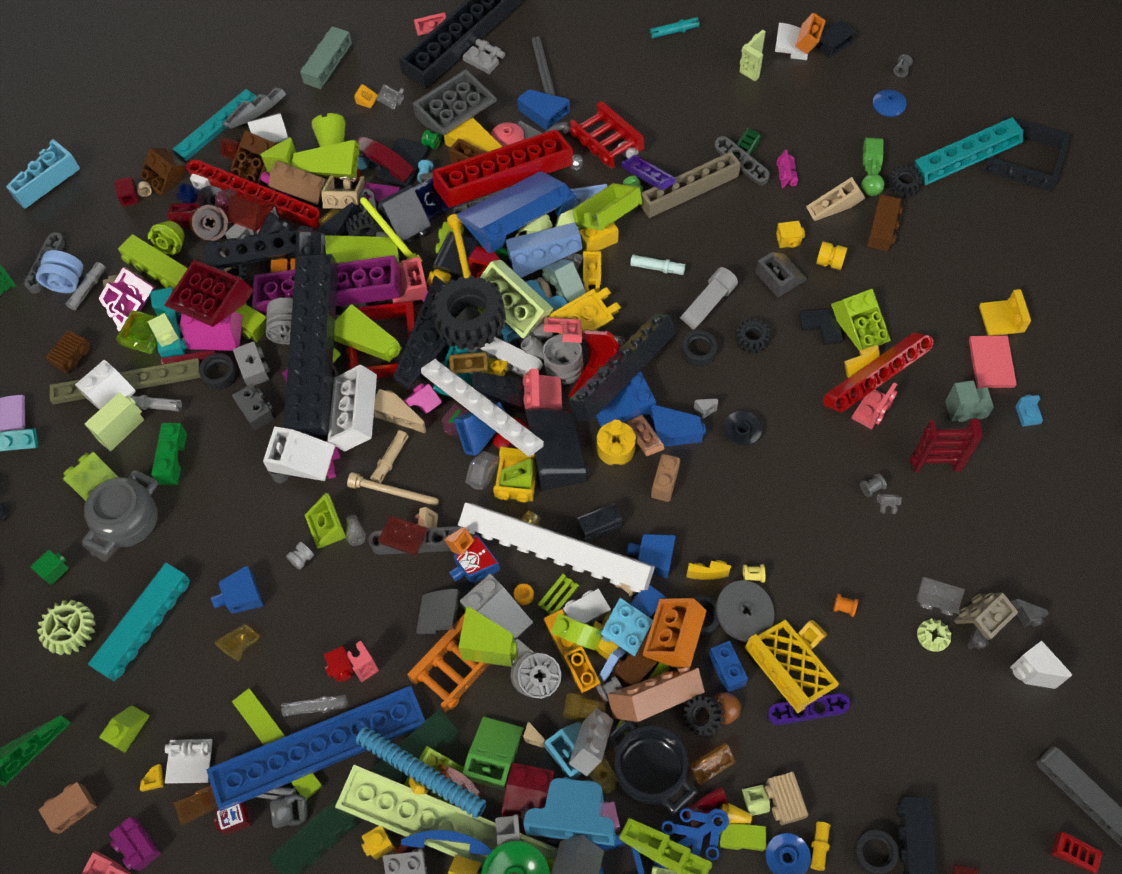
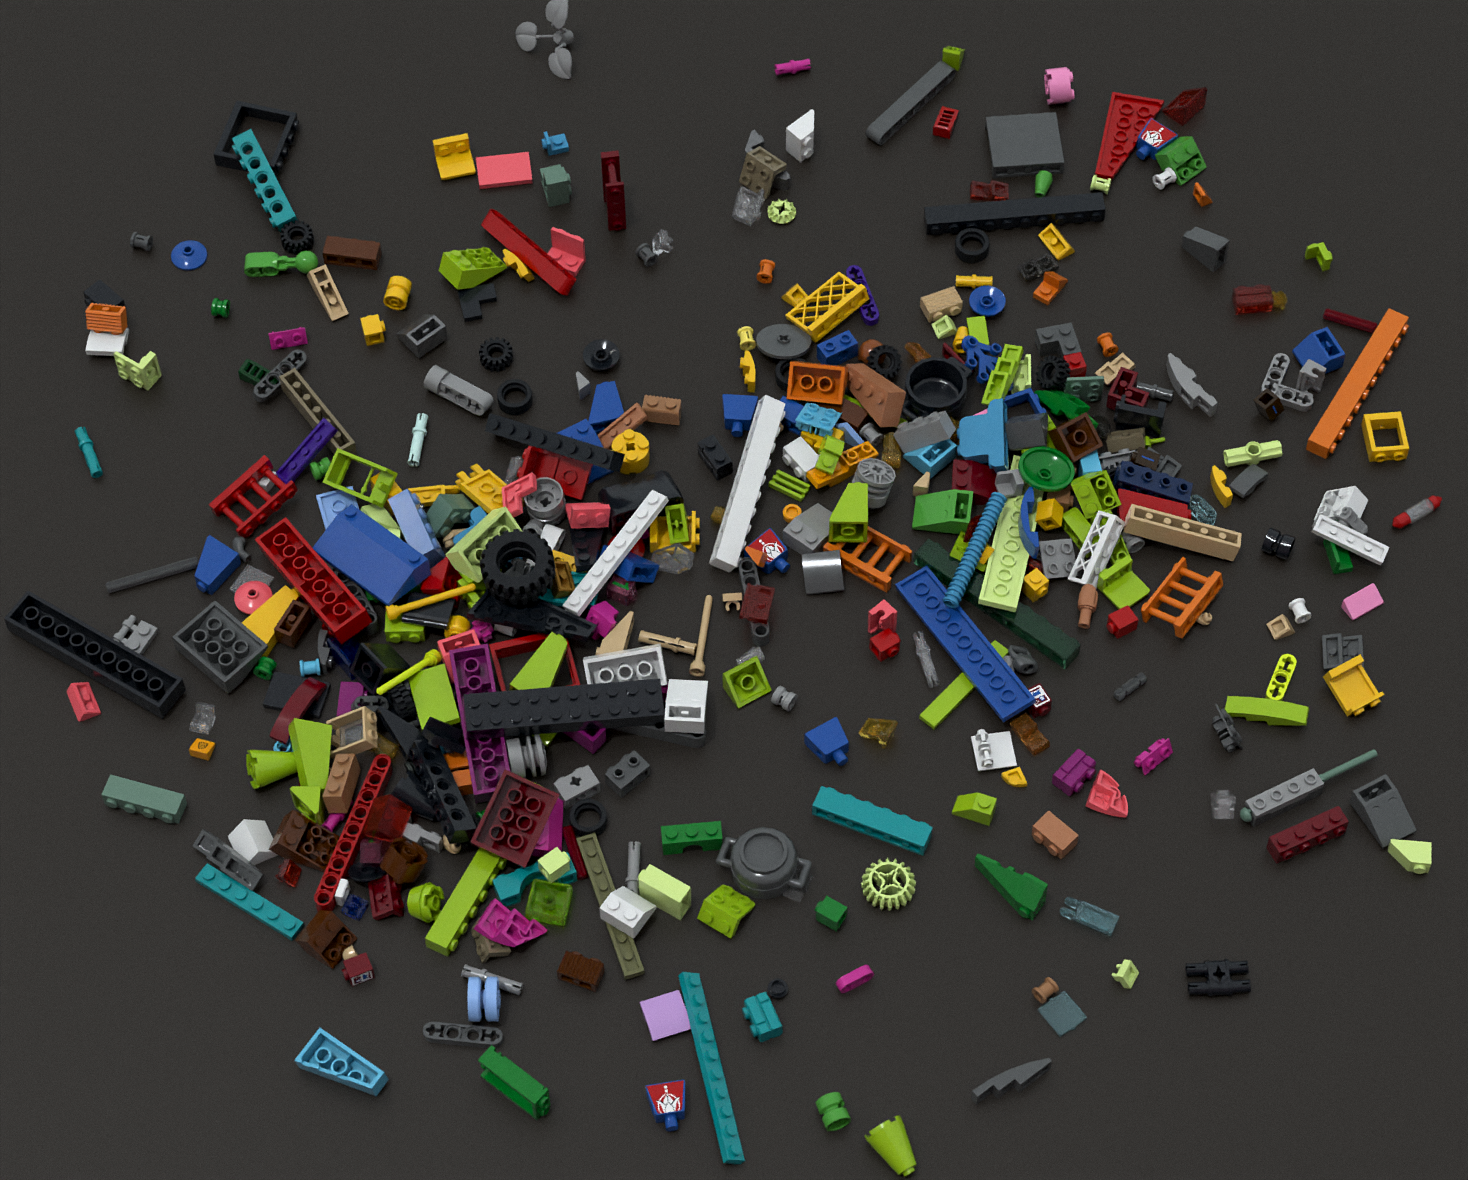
camera: 100 degrees left, 5 degrees down
(823, 120) = (220, 307): none -> green wheel

